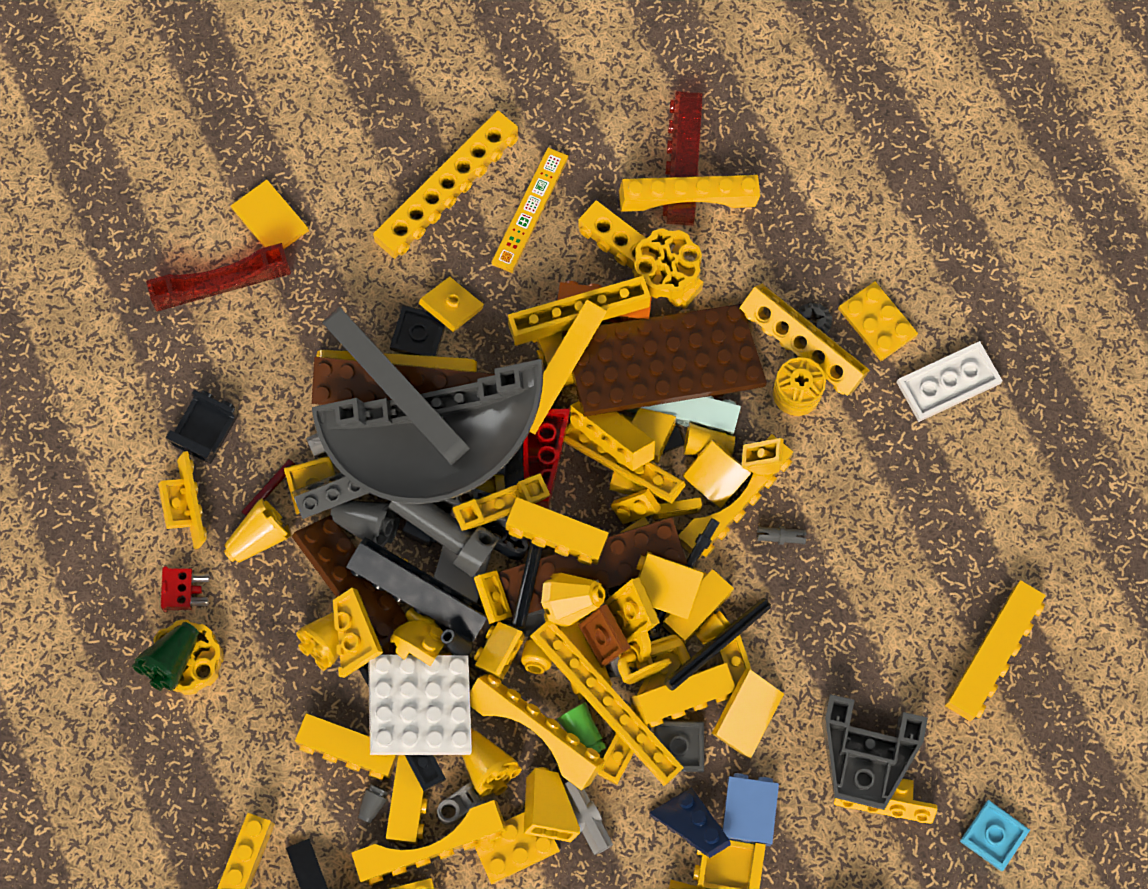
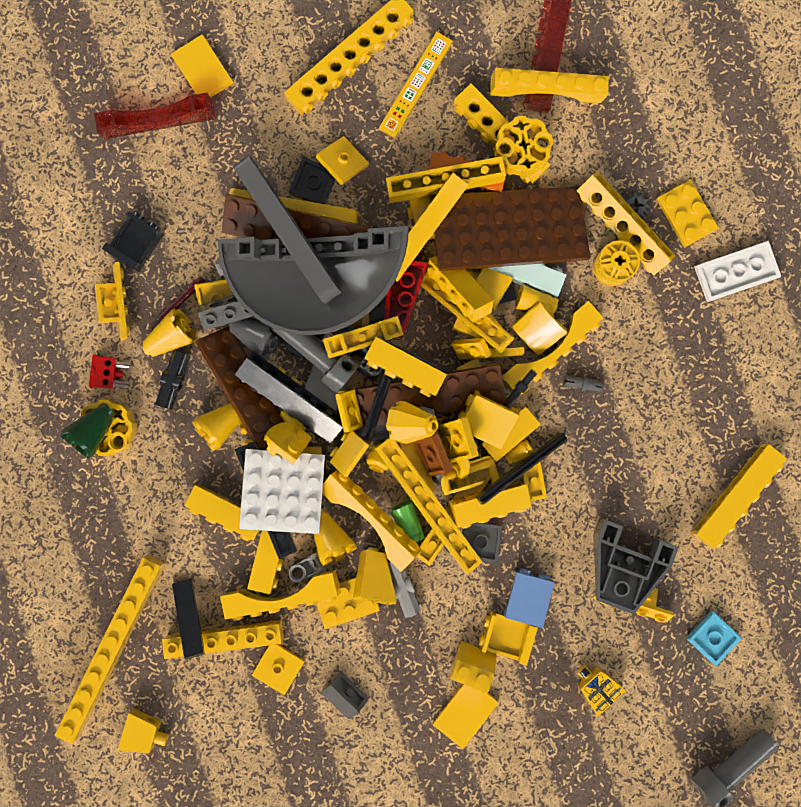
camera: 10 degrees right, 15 degrees up
(264, 588) = (171, 379): none -> black piece
(355, 633) = (237, 429): yellow wing -> none
(372, 802) = (241, 556): dark grey cone -> none
(457, 643) = (317, 445): black cone -> none
(693, 822) = (483, 603): dark blue wing -> none
(747, 713) = (537, 523): yellow tile -> none
(763, 456) = (580, 322): yellow slope -> none

